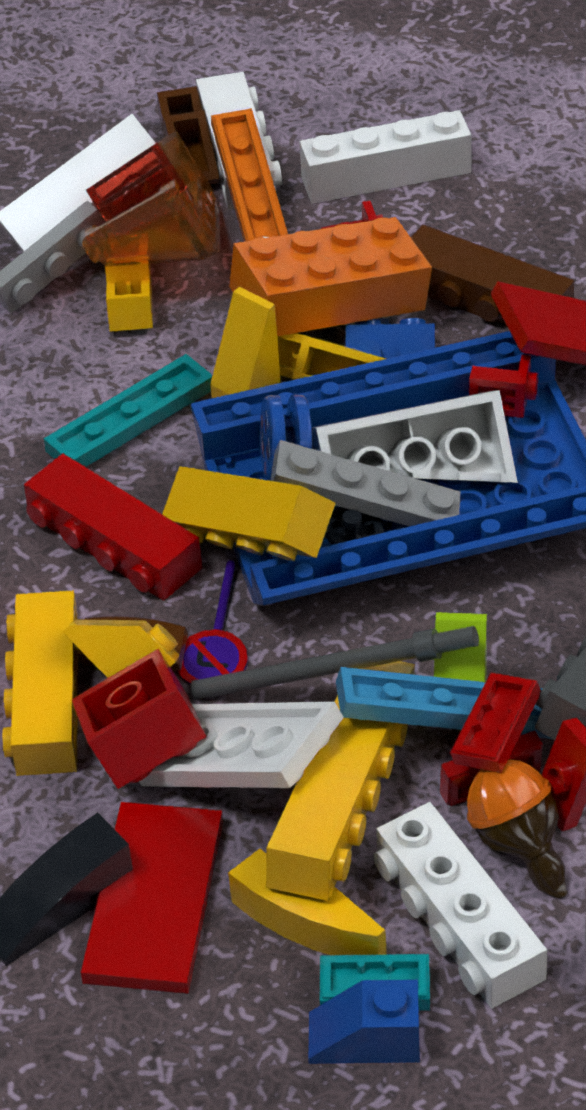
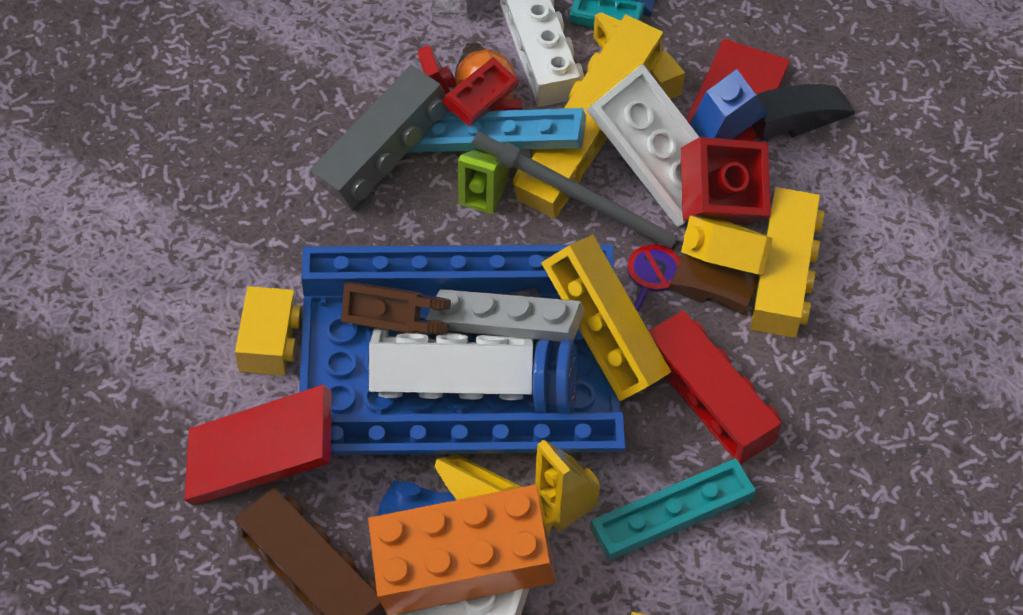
camera: 170 degrees left, 10 degrees up
(148, 806) = (727, 109): none -> blue slope
(494, 476) = (391, 308): none -> reddish brown hinge
(514, 386) = (355, 398): red bracket -> none

